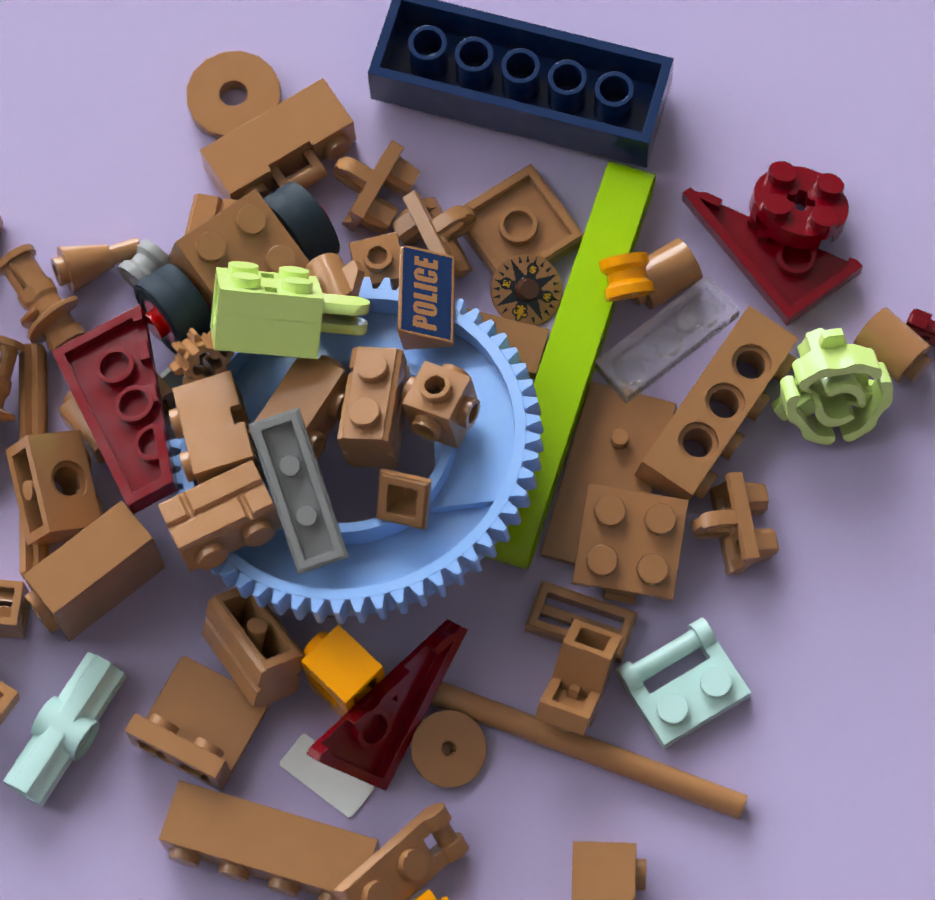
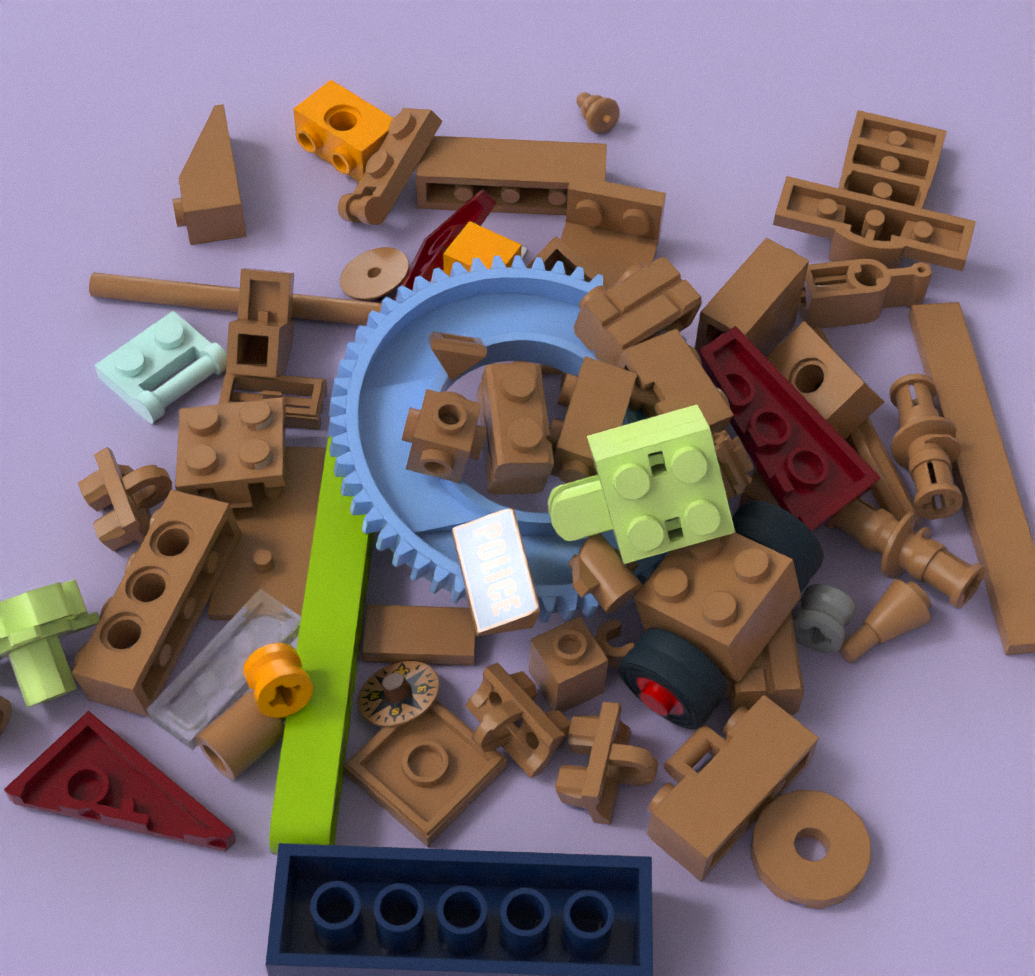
camera: 160 degrees right, 15 degrees down
(65, 728) = (723, 224): light aqua piece -> none
(298, 490) = (566, 328): light grey tile -> none
(788, 185) = (50, 851): dark red plate -> none

